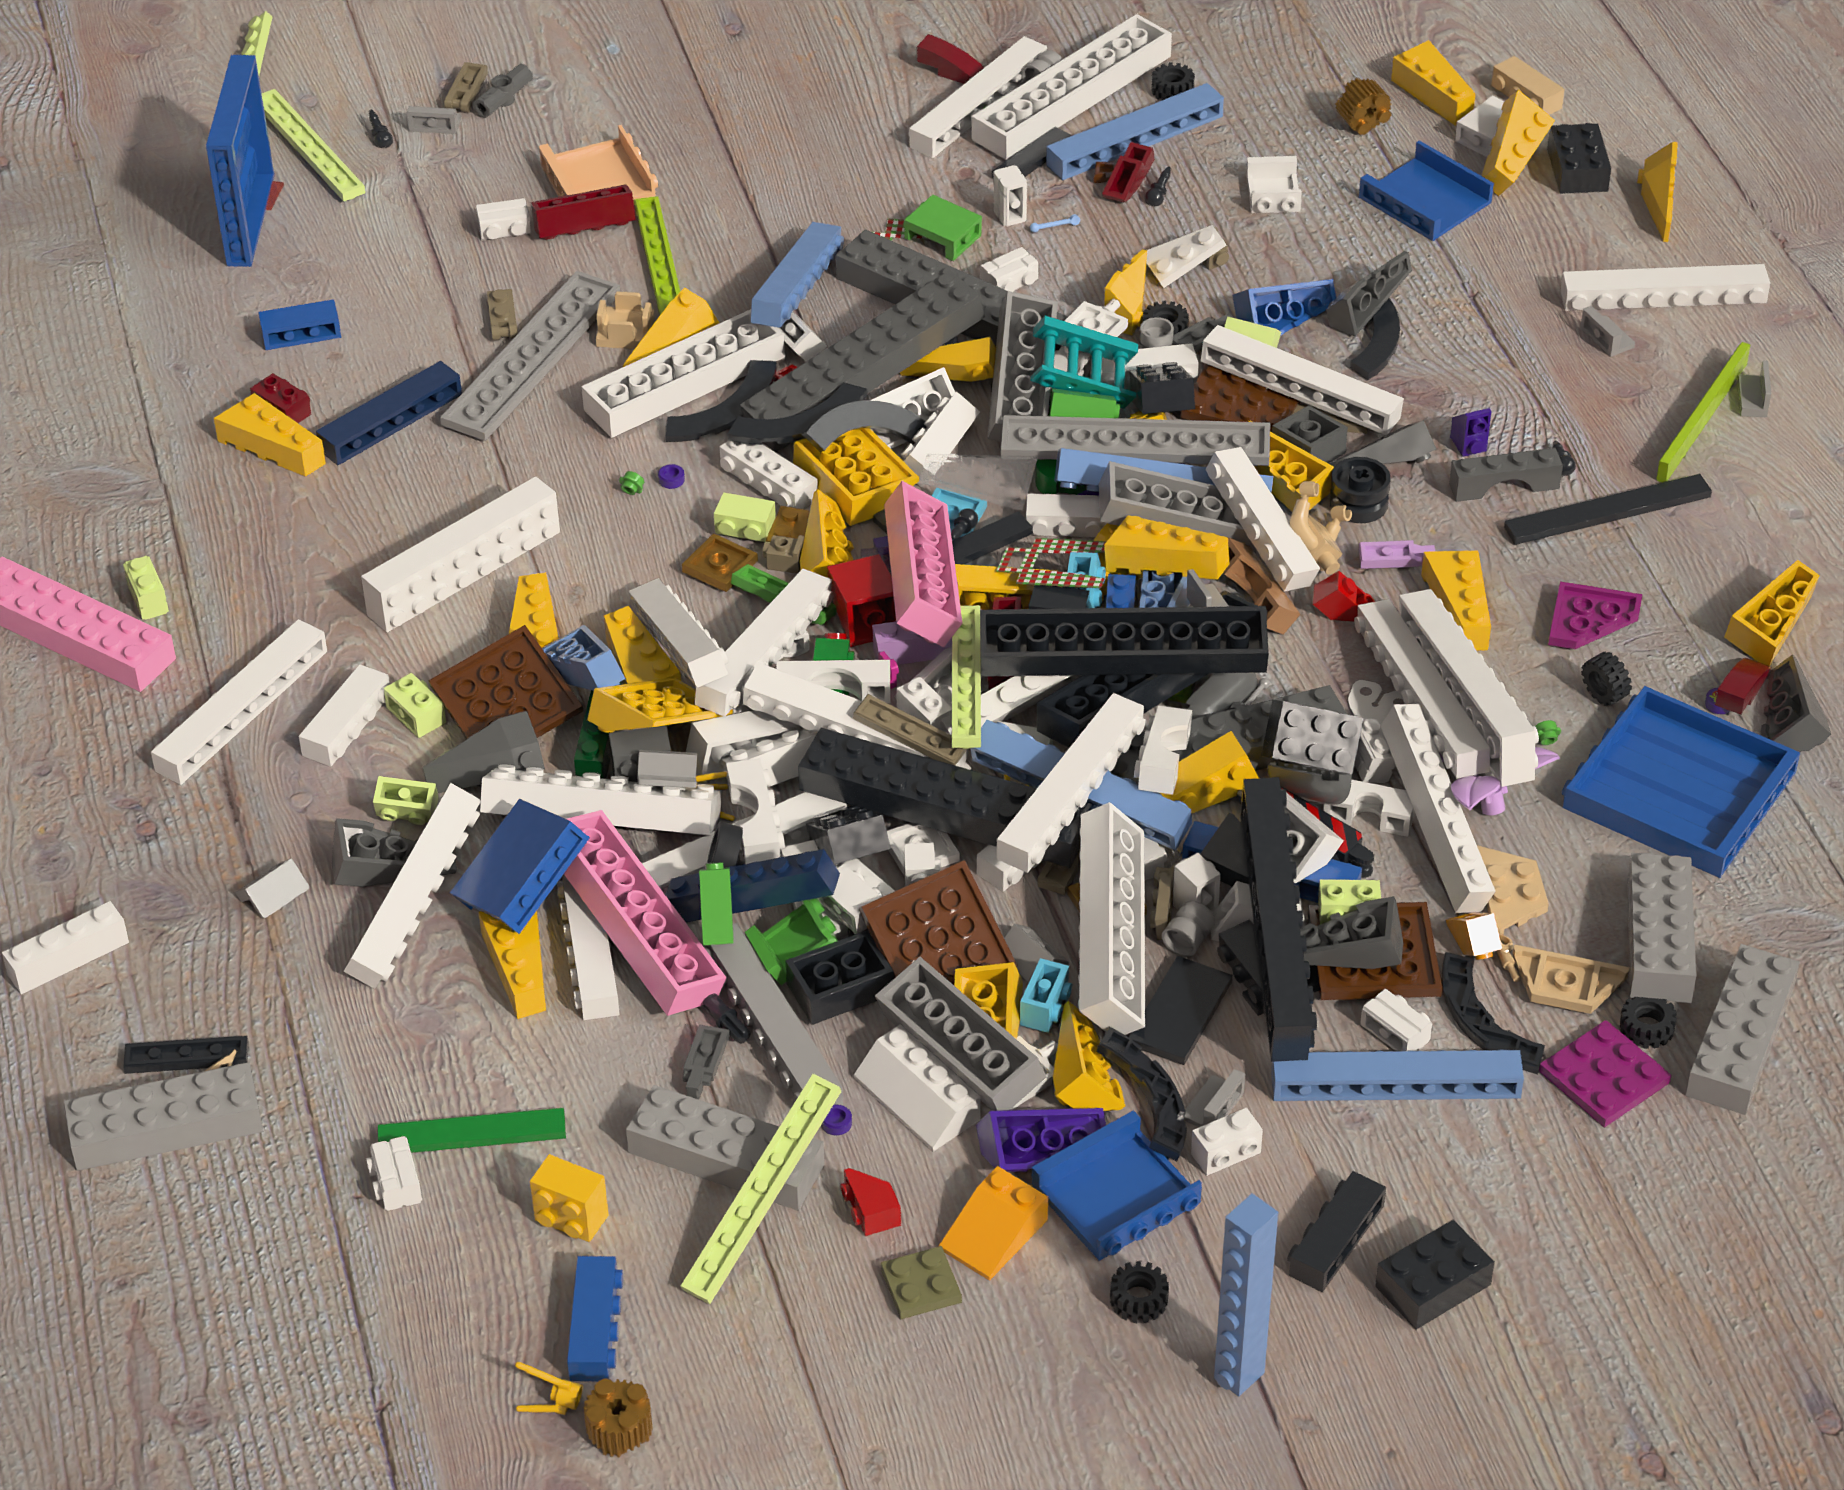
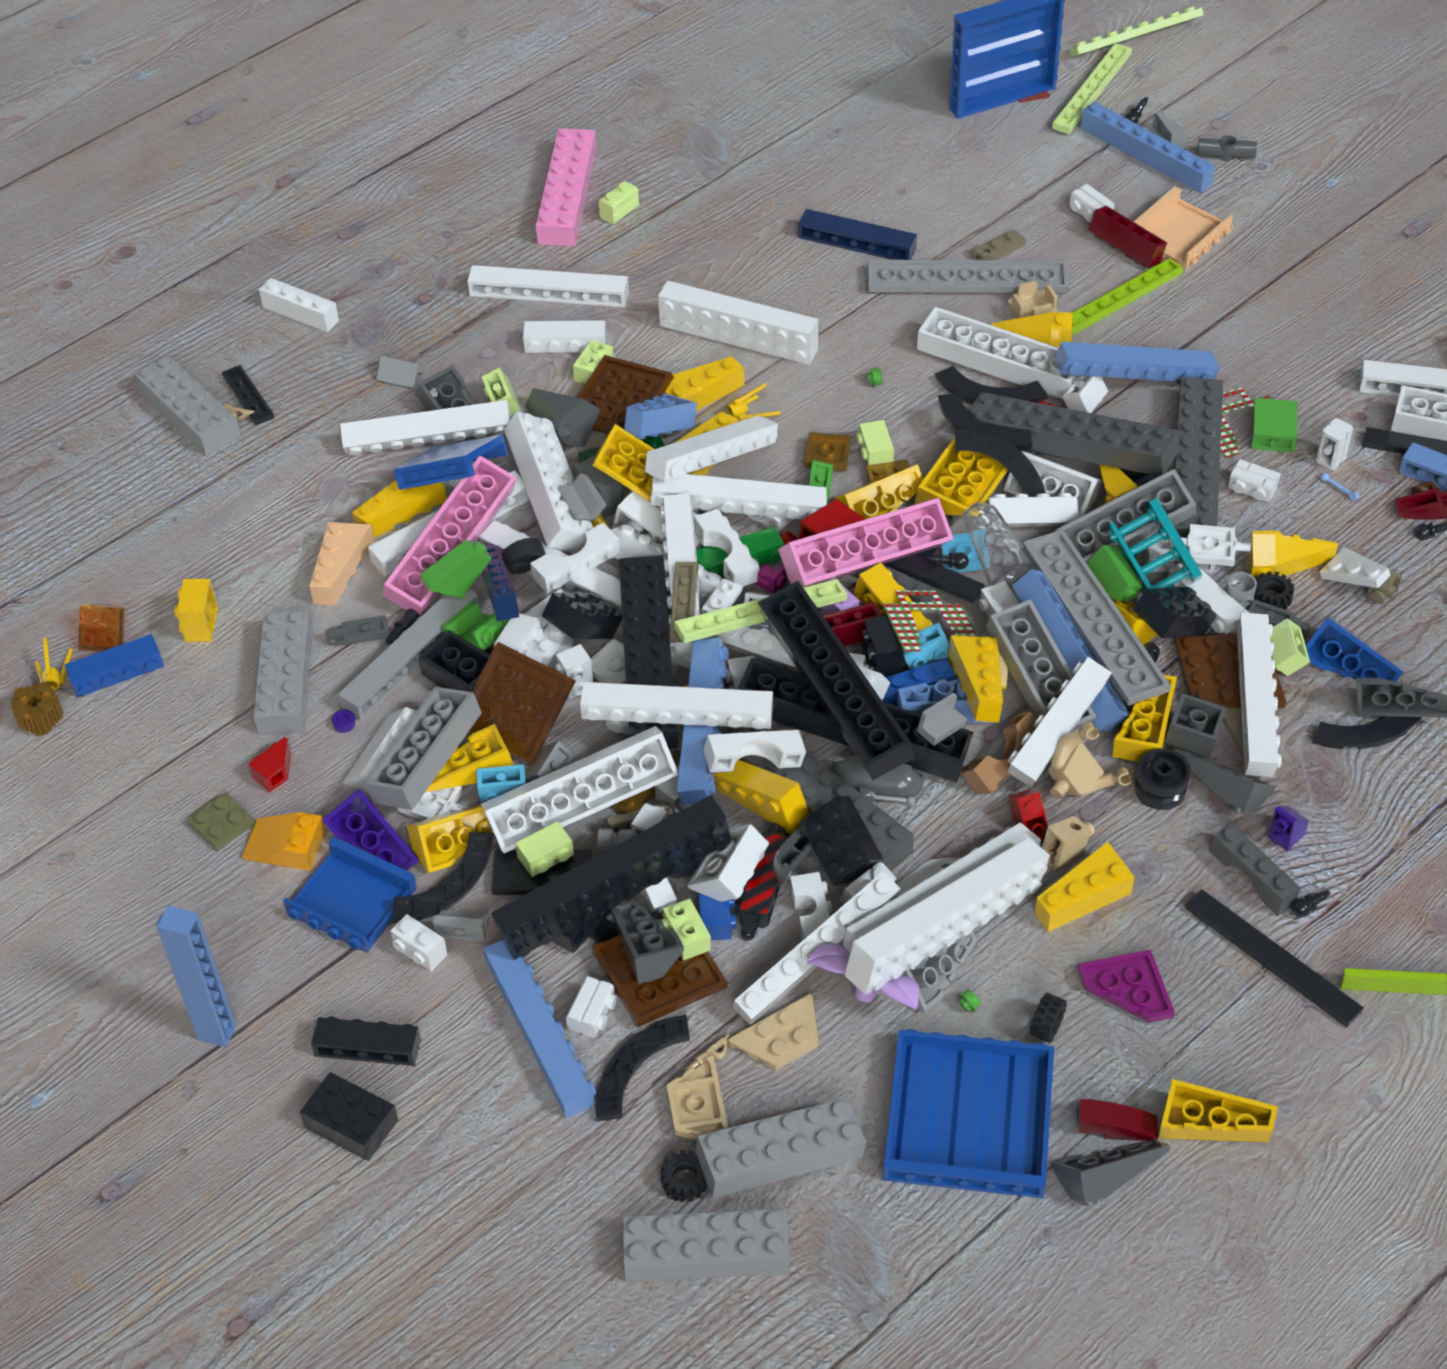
camera: 65 degrees right, 5 degrees up
(271, 434) = (796, 189): yellow wedge -> none
(284, 397) = (831, 184): dark red brick -> none
(299, 324) = (910, 161): blue brick -> none
(395, 1173) = (190, 525): white brick -> none
(448, 143) = (1147, 147): none -> medium blue brick
(466, 86) = (1217, 129): dark tan plate -> none
(478, 1130) = (247, 547): green tile -> none
(516, 1311) = (100, 626): none -> clear orange slope
(573, 1042) = (337, 561): none -> light nougat wedge
(593, 609) = (739, 406): none -> yellow plant
(671, 476) = (900, 394): dark purple tile -> none
(761, 1189) = (239, 696): yellowish green plate -> none
(769, 473) = (933, 439): white brick -> none
(783, 553) = (857, 475): dark tan brick -> none
(1139, 1306) = (262, 955): black tyre -> none
(1169, 983) = (544, 849): none -> yellowish green brick
(1392, 554) = (1108, 829): lavender hinge -> none
(1398, 577) = (1066, 841): none -> tan torso
(1475, 934) = (712, 1024): slope -> none
(1605, 1073) = (616, 1166): magenta plate -> none

